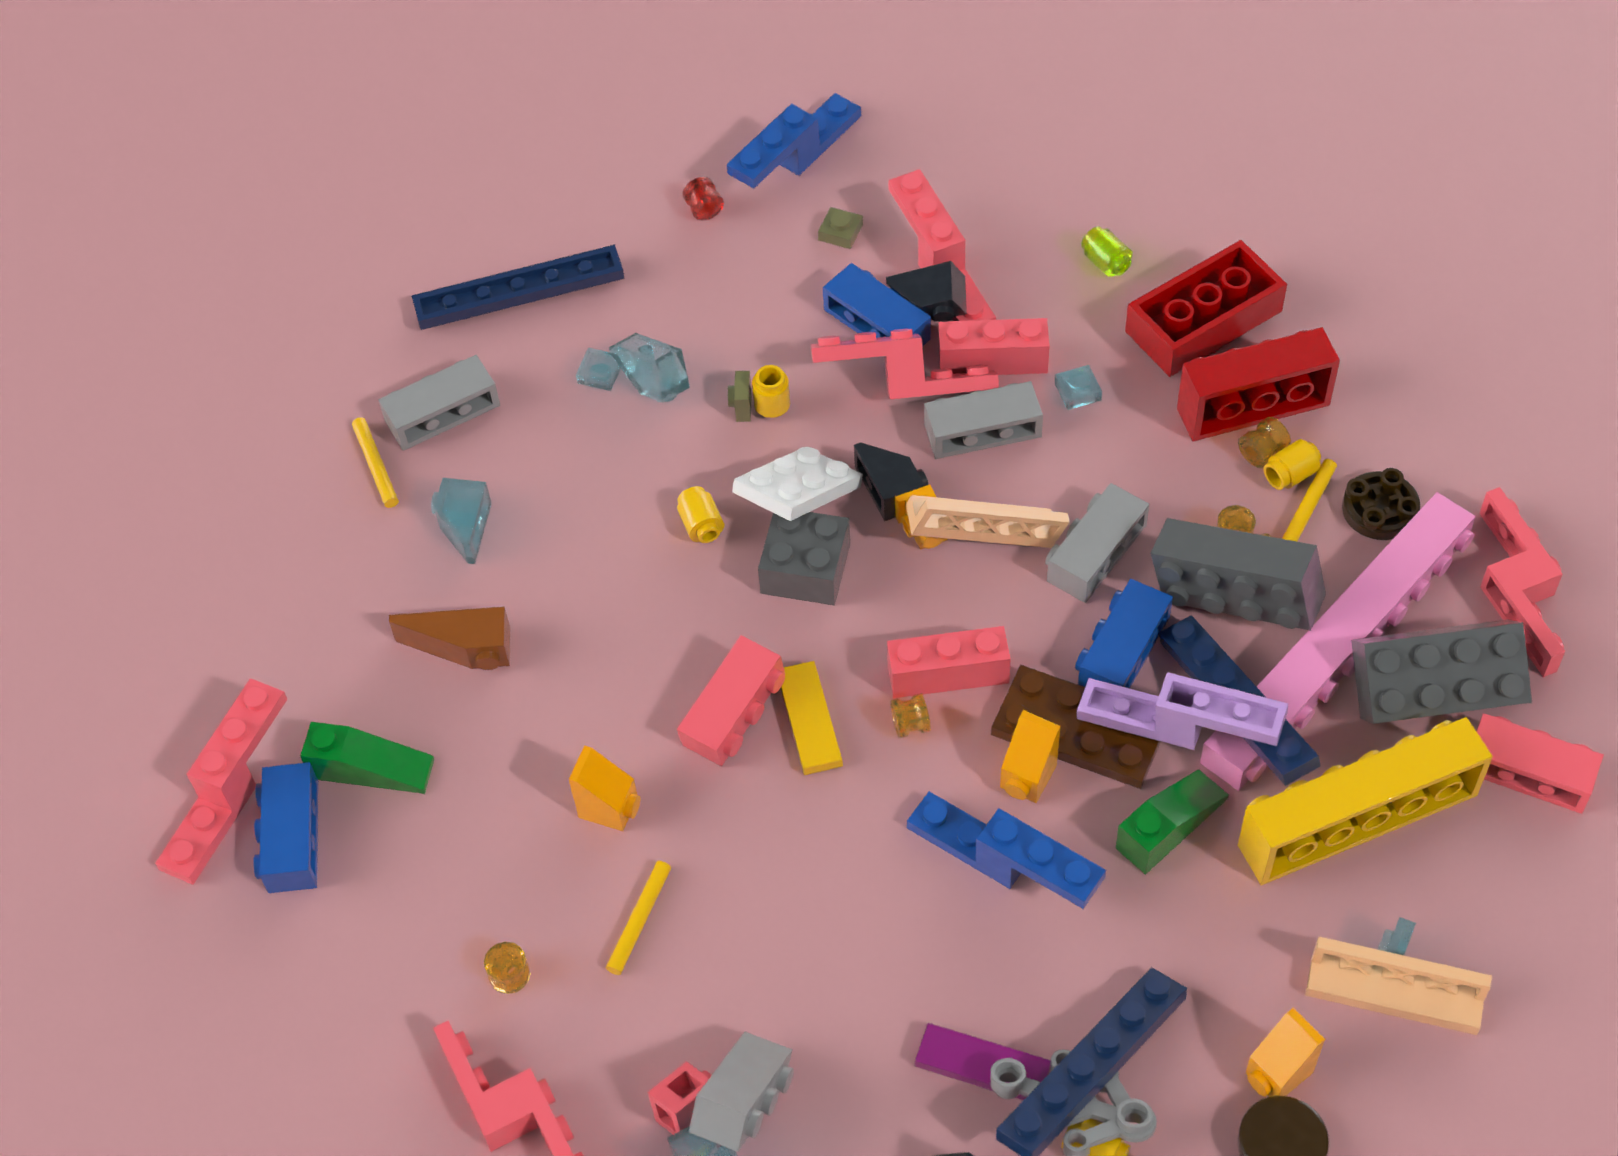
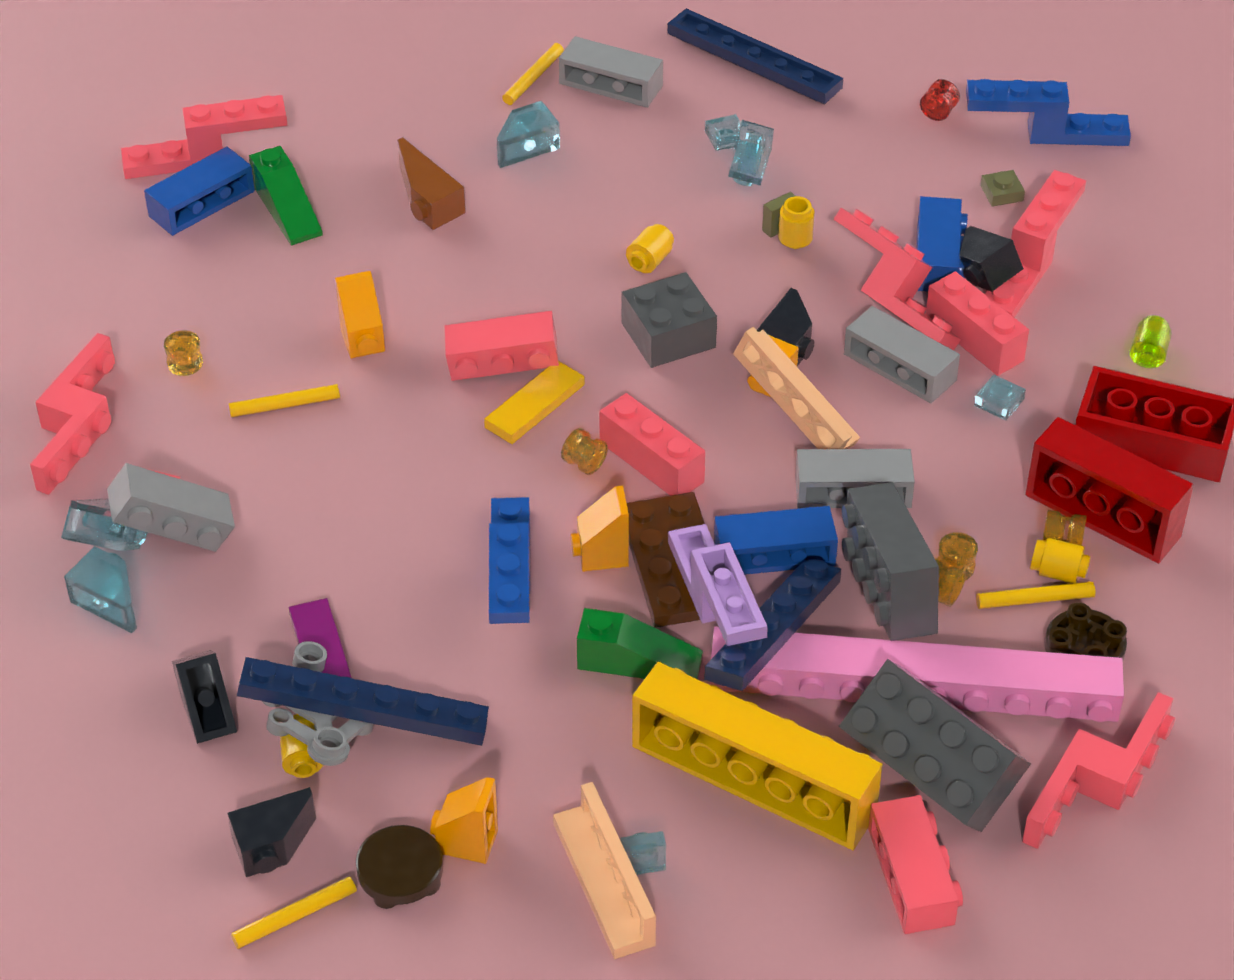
camera: 50 degrees right, 10 degrees down
(797, 483) = (723, 275): white plate -> none

